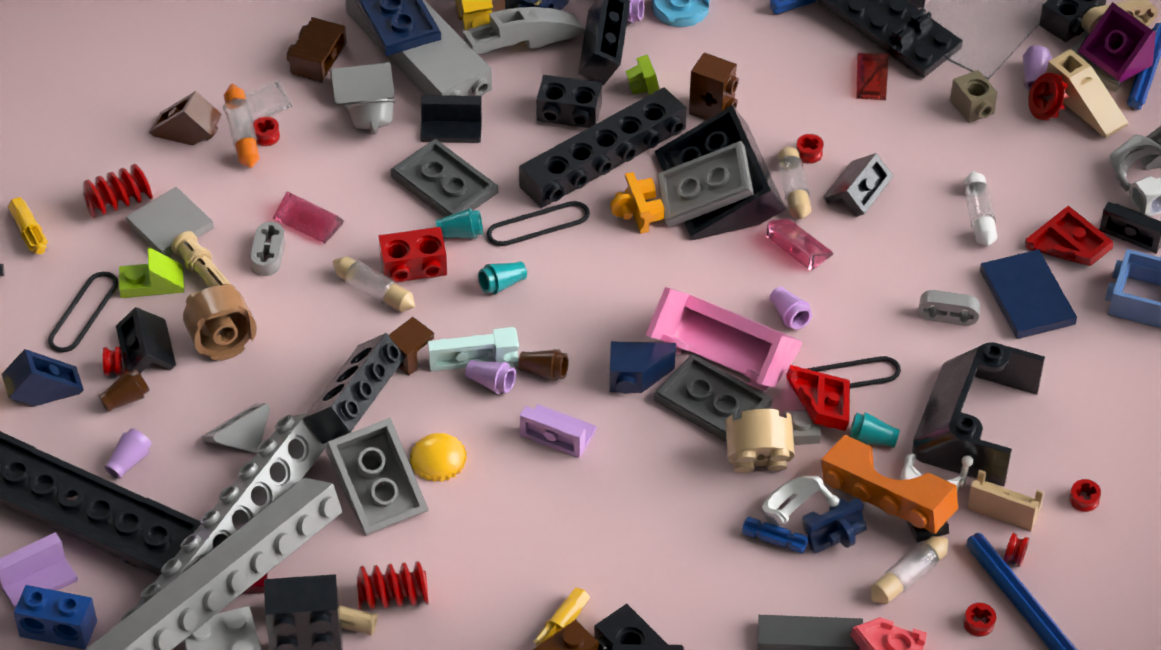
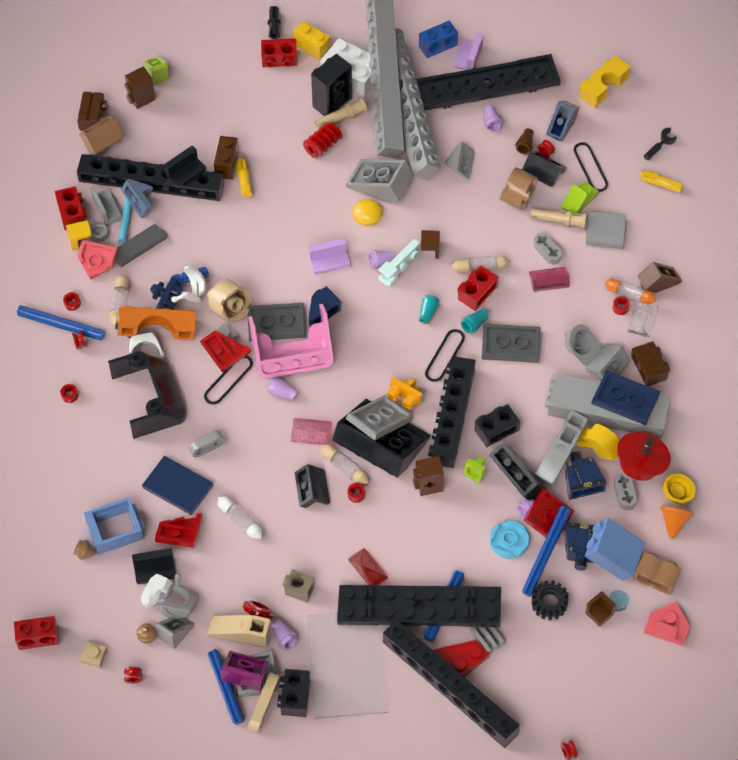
camera: 140 degrees right, 10 degrees up
(116, 189) = (642, 220): red piece -> none
(354, 388) = (424, 195): black brick -> none
(451, 118) = (541, 375): black panel -> none
(545, 363) = (364, 280): reddish brown cone -> none
(873, 431) = (188, 353): teal cone -> none
(1004, 503) = (96, 360): tan hinge -> none

